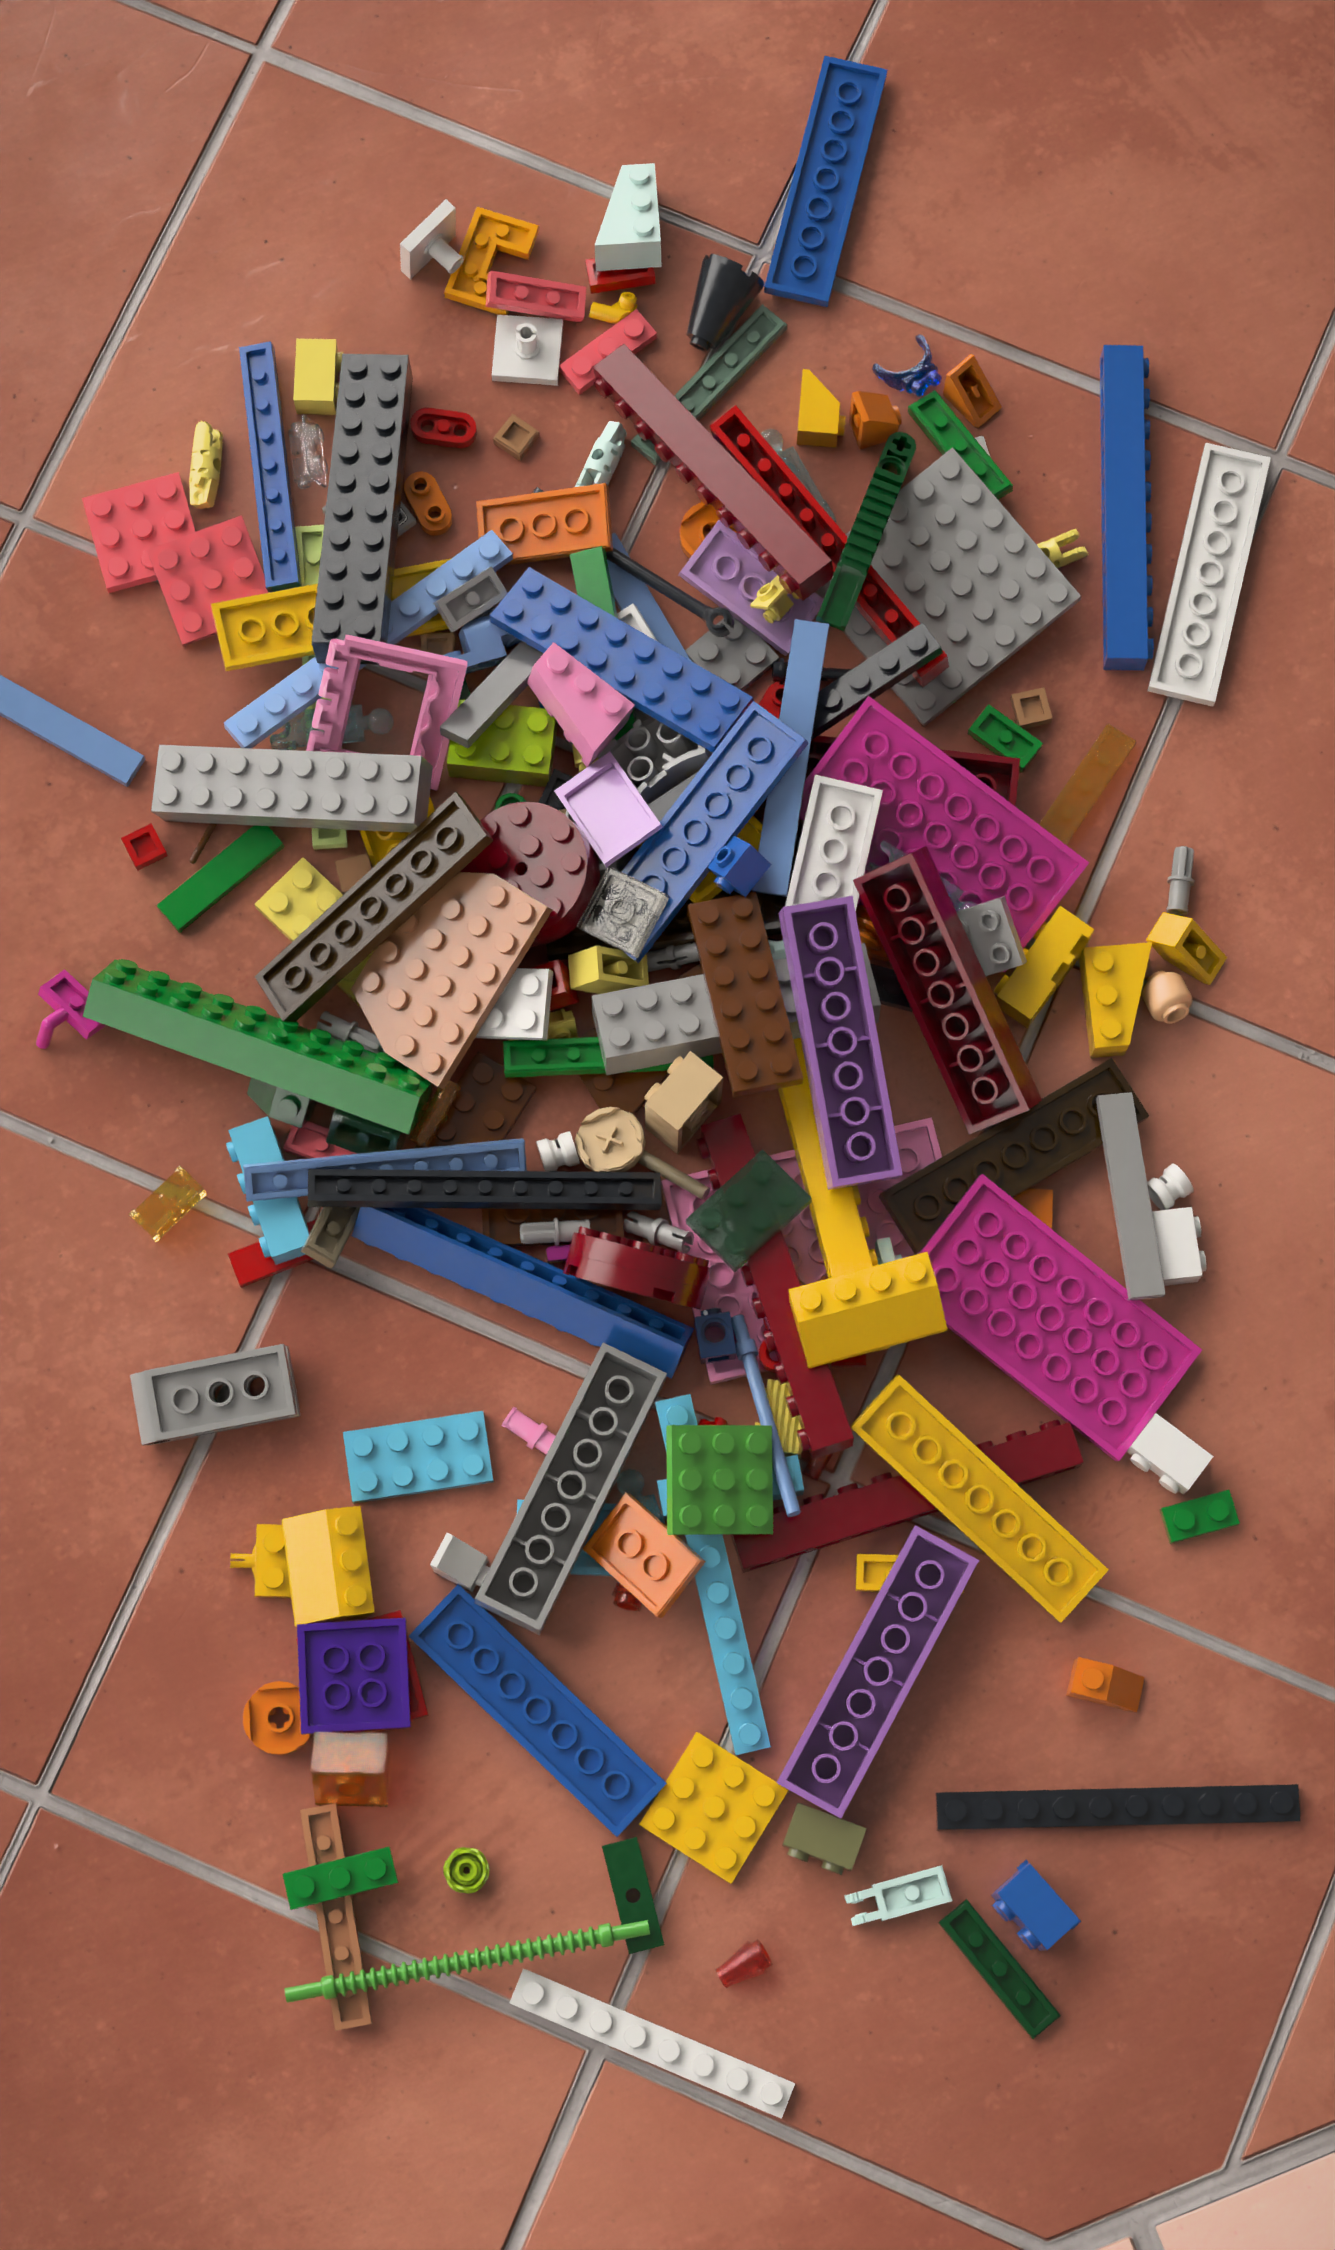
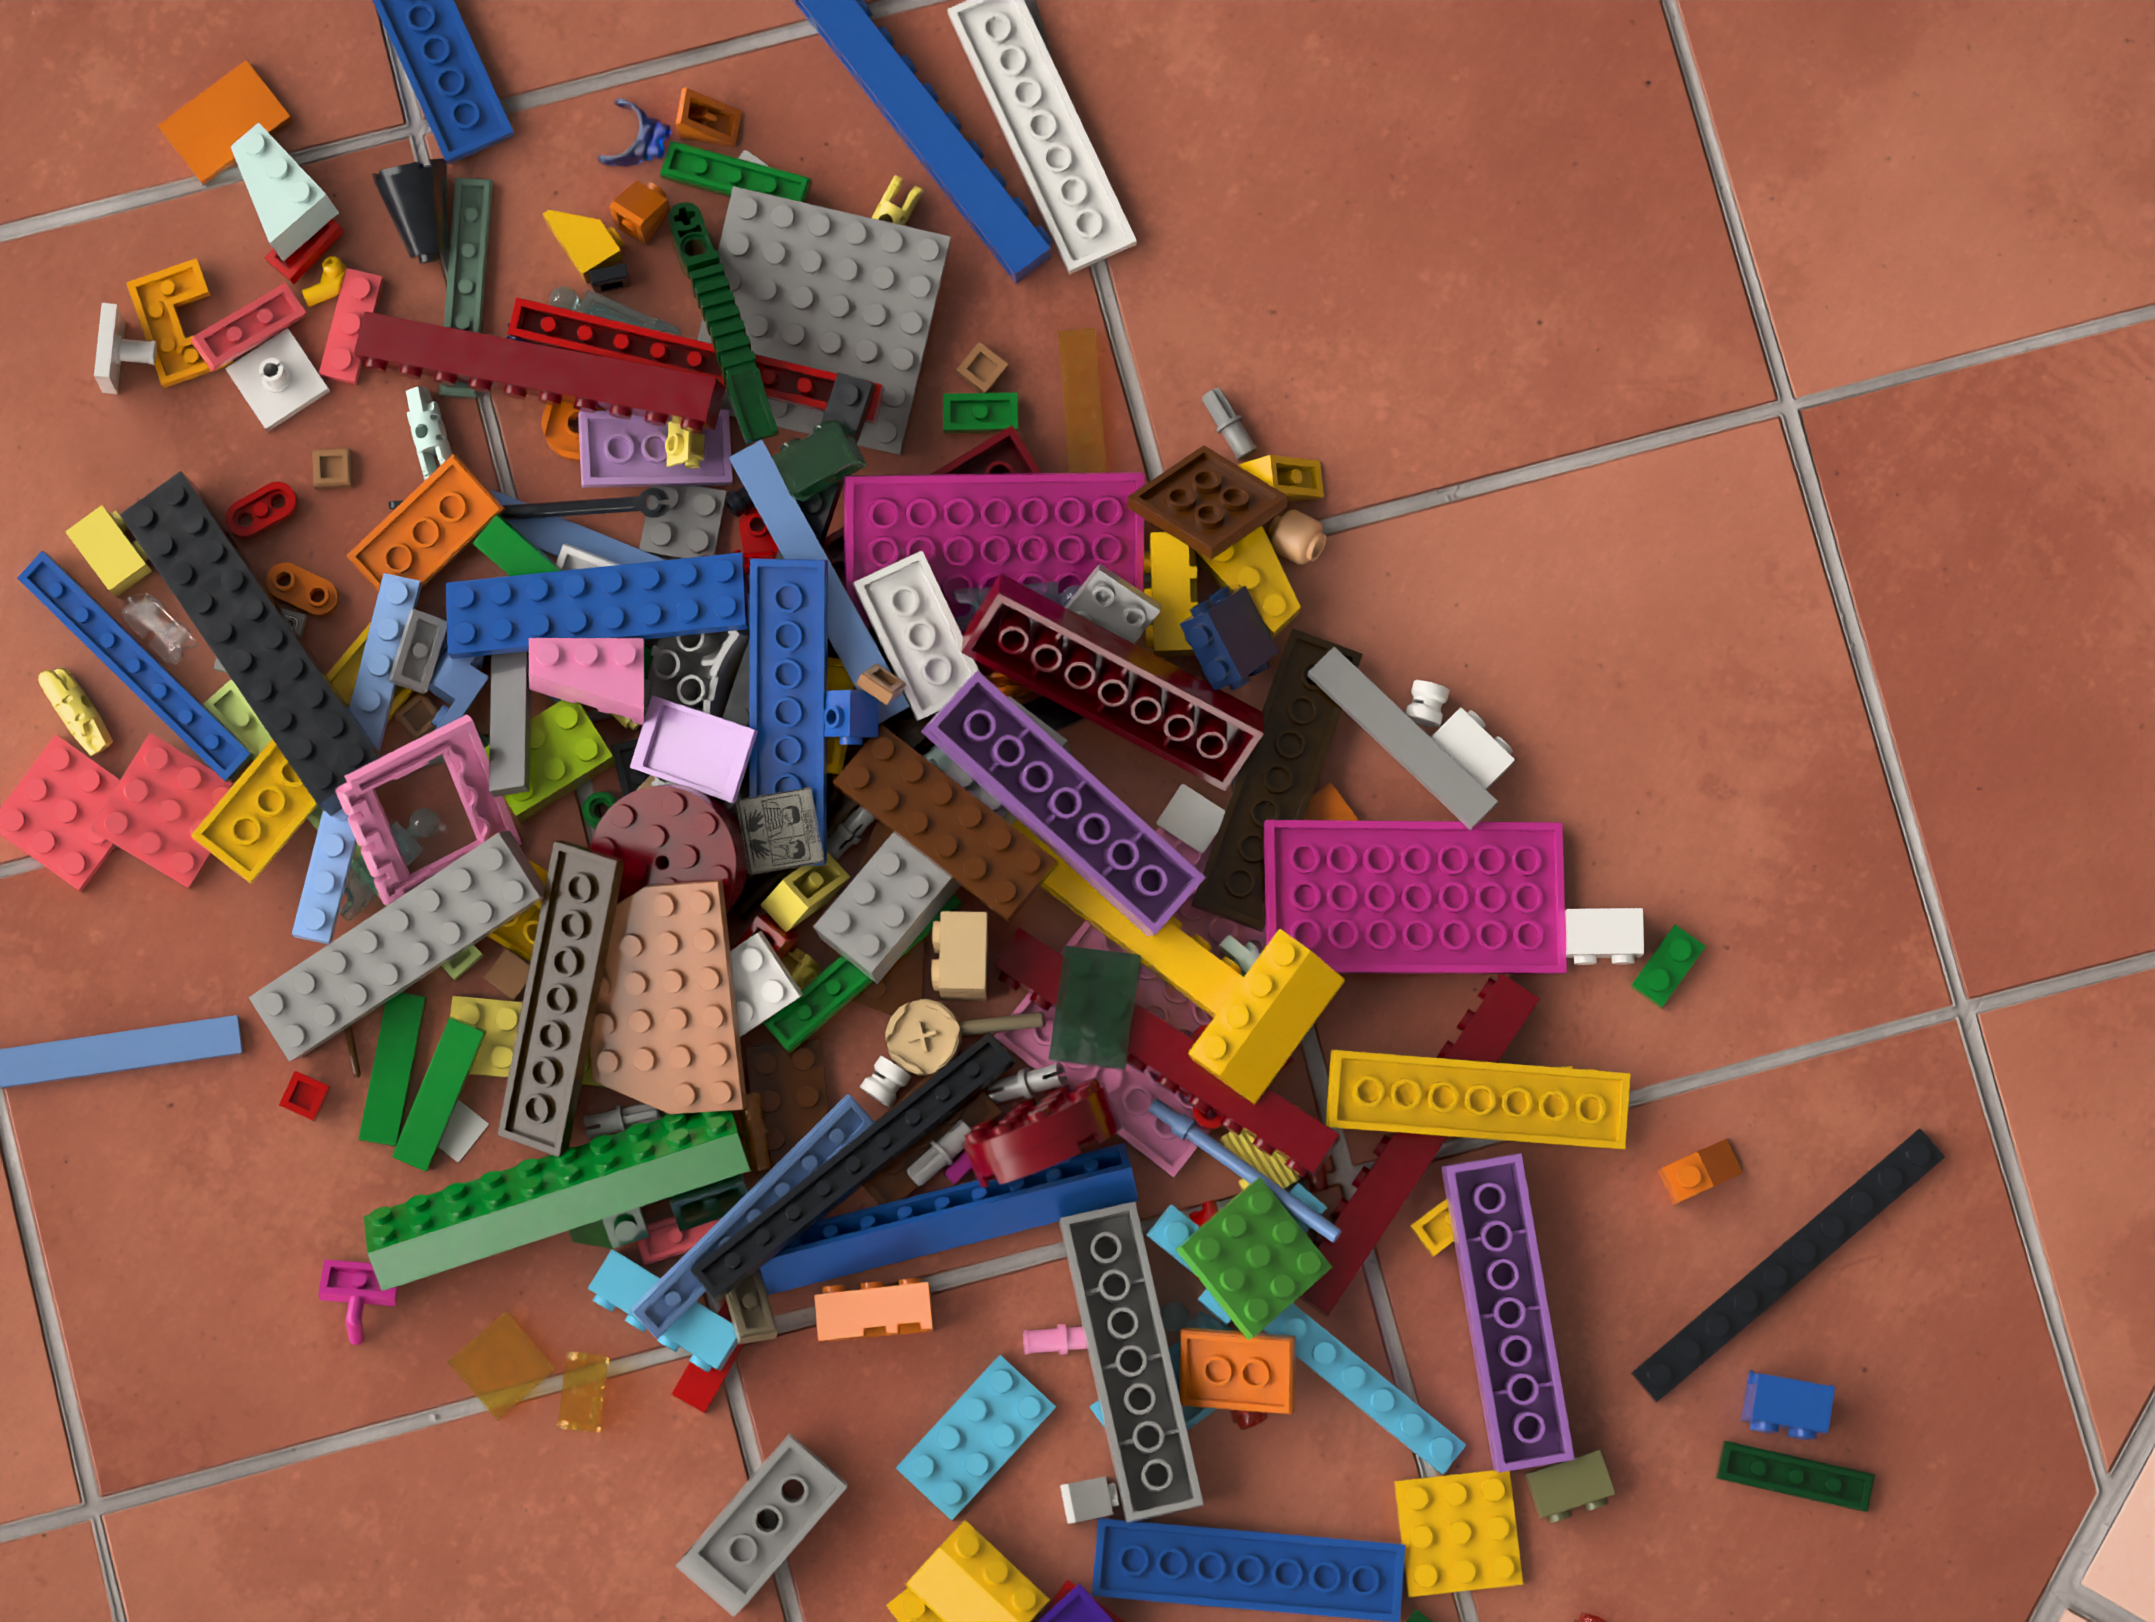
camera: 40 degrees left, 5 degrees up
(126, 1140) = (502, 1365): none -> clear yellow tile
(229, 947) = (462, 1131): none -> white sticker
(237, 916) = (439, 1094): none -> green tile
(418, 1307) = (874, 1310): none -> wedge
(631, 142) = (221, 116): none -> orange tile
(720, 1351) = (1150, 1153): dark blue brick -> none
(777, 860) = (881, 684): none -> medium nougat tile
(815, 450) = (610, 278): none -> black tile
(858, 669) = (818, 459): none -> clear green brick
(903, 1895) = (1671, 1480): light aqua hinge -> none
(929, 1136) = (1191, 818): none -> white sticker
(1058, 1025) = (1229, 638): none -> dark blue brick
(1119, 916) = (1207, 502): none -> reddish brown plate

